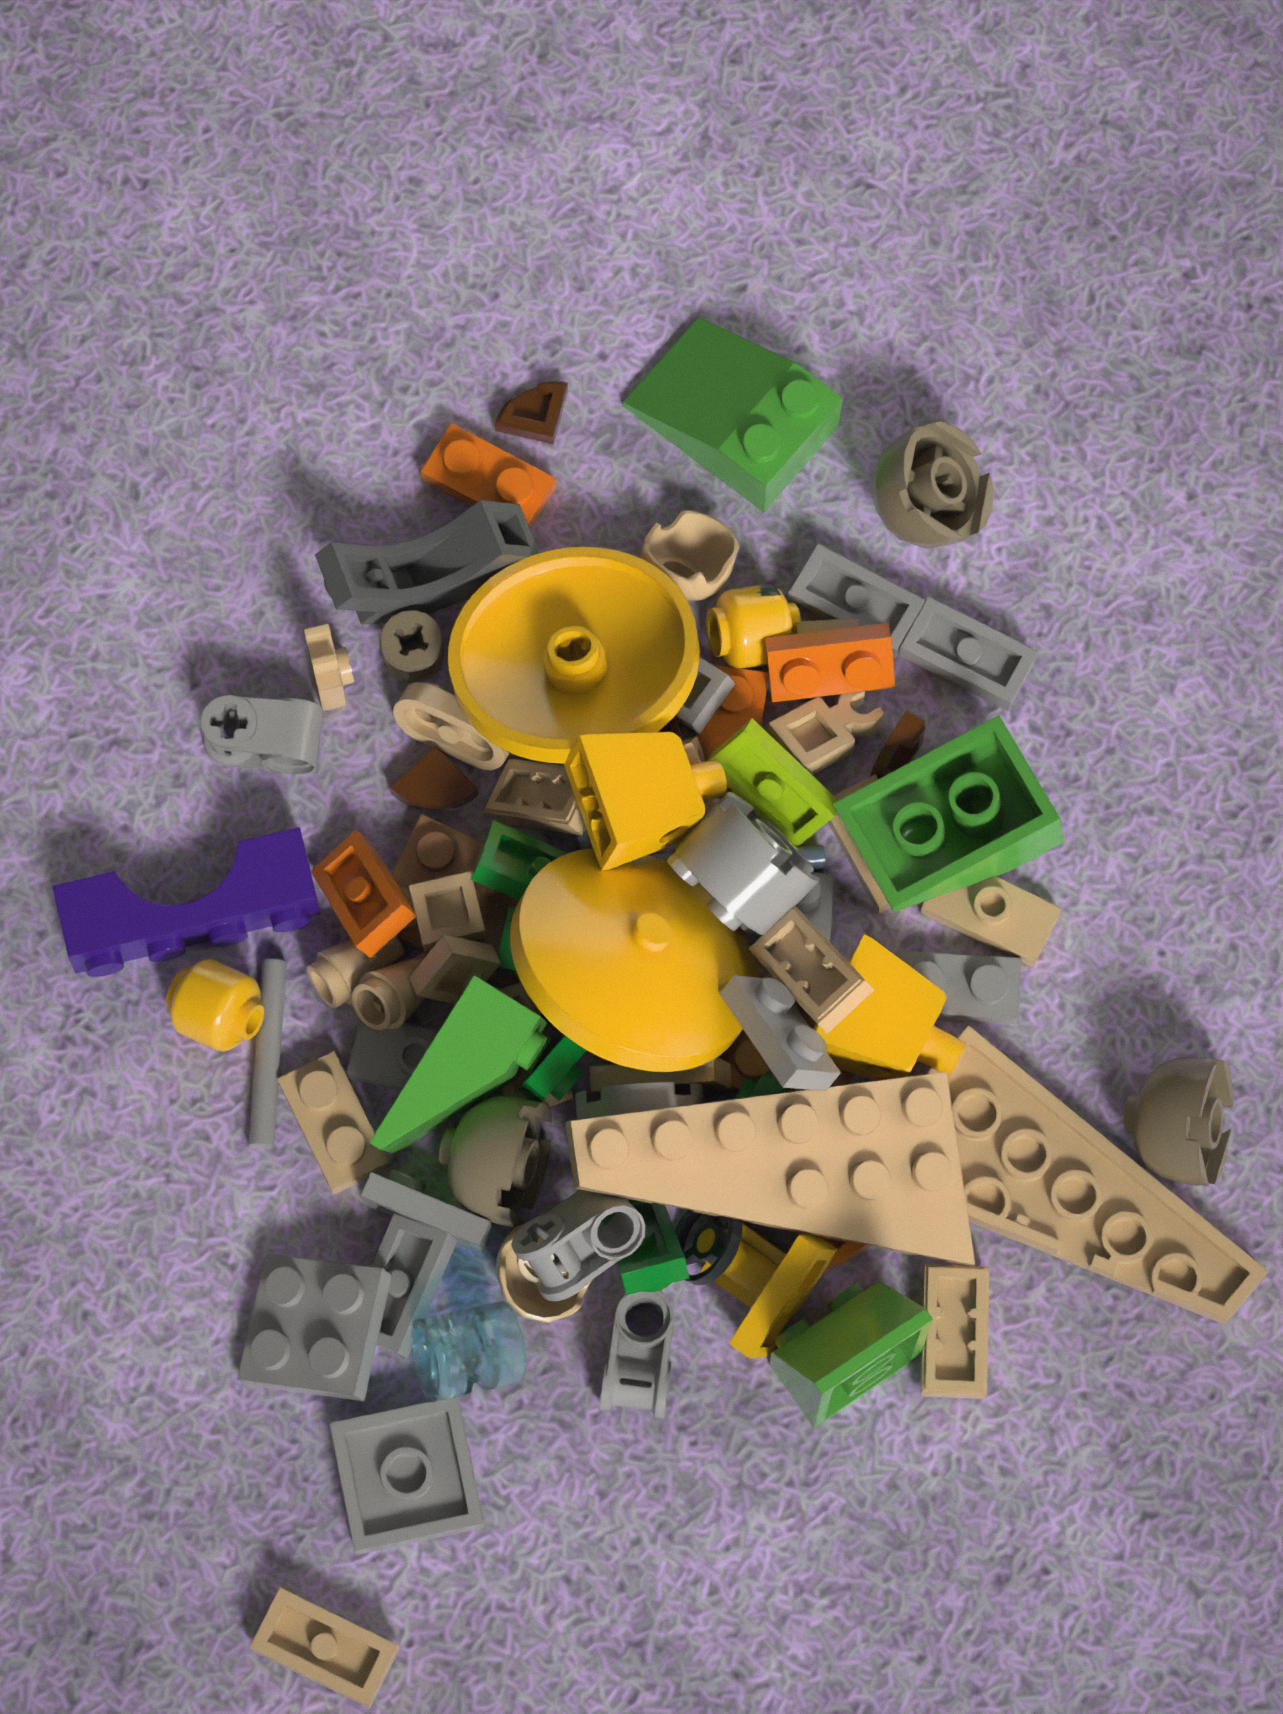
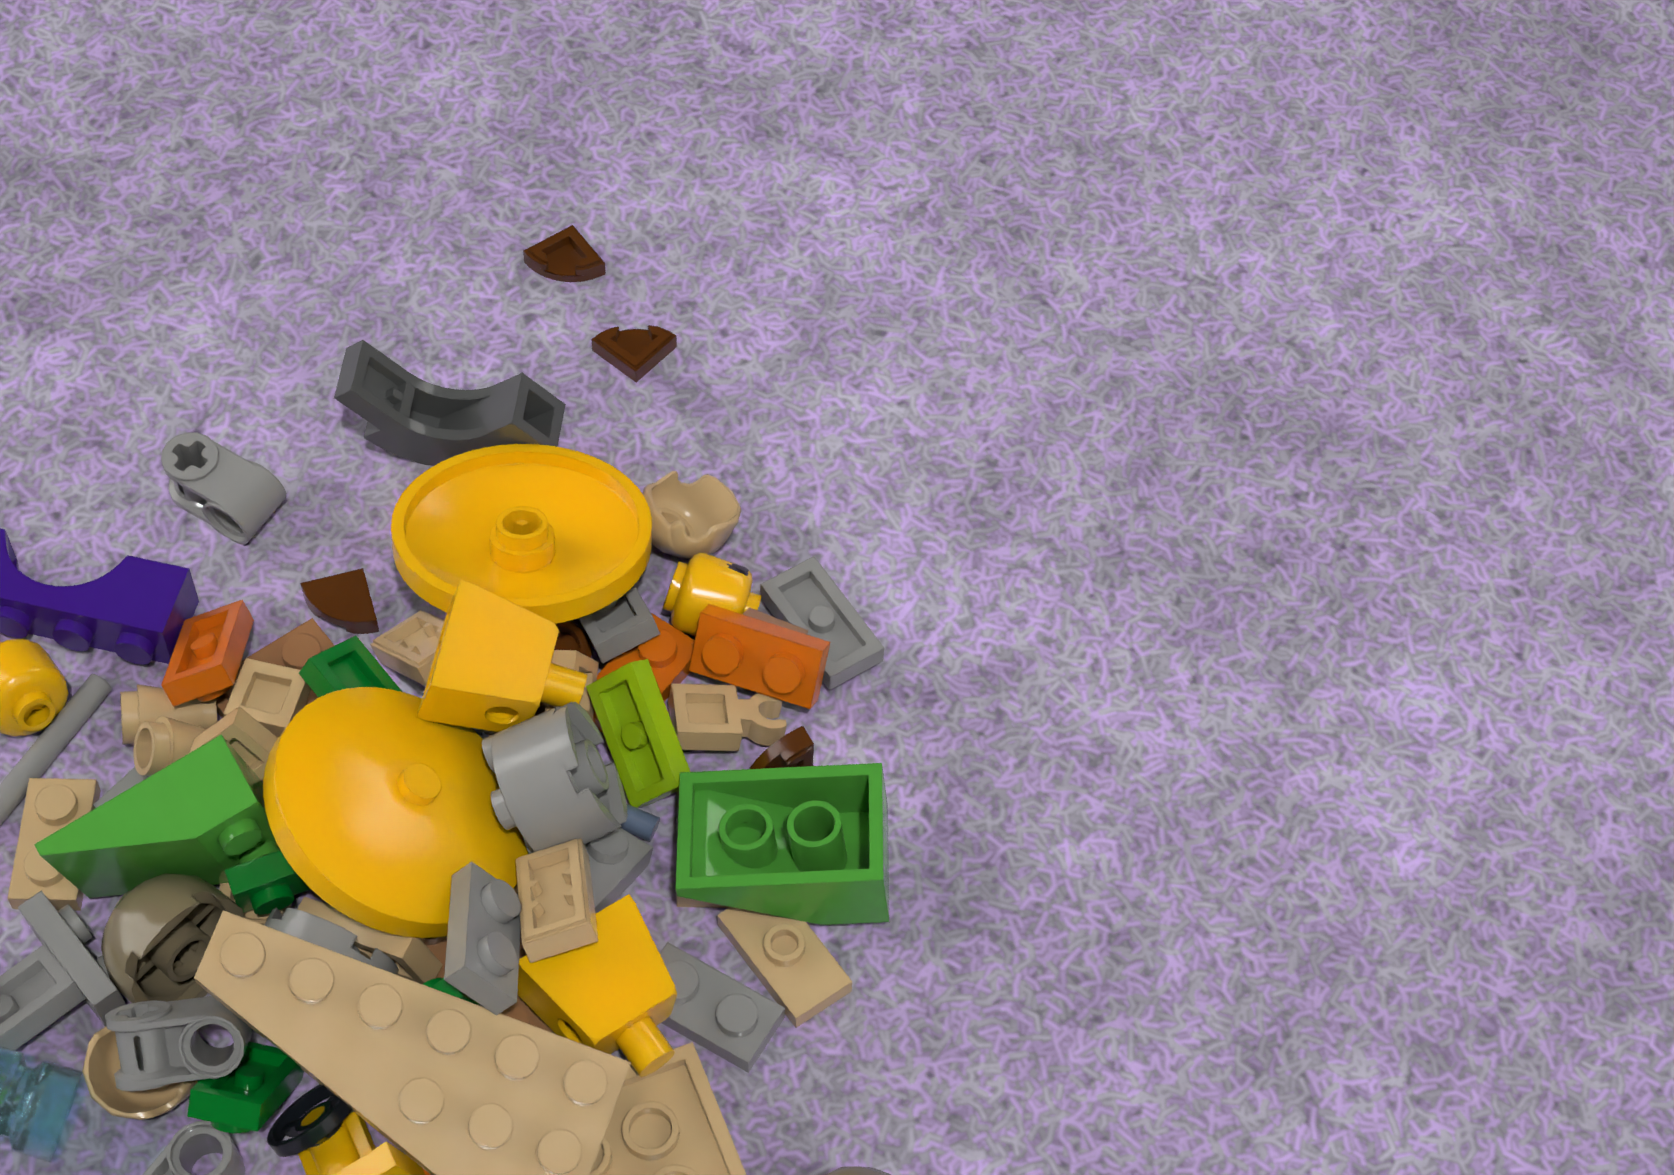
camera: 25 degrees right, 15 degrees down
(329, 666) = (311, 455): tan plate -> none
(411, 661) = (384, 464): dark tan wheel -> none
(417, 348) = (566, 256): none -> reddish brown tile
(435, 718) = (370, 544): tan plate -> none
(480, 471) = (558, 368): orange plate -> none
(737, 410) = (814, 425): bright green slope -> none
(932, 486) = (945, 549): dark tan cylinder -> none
(968, 653) = (899, 714): light grey plate -> none

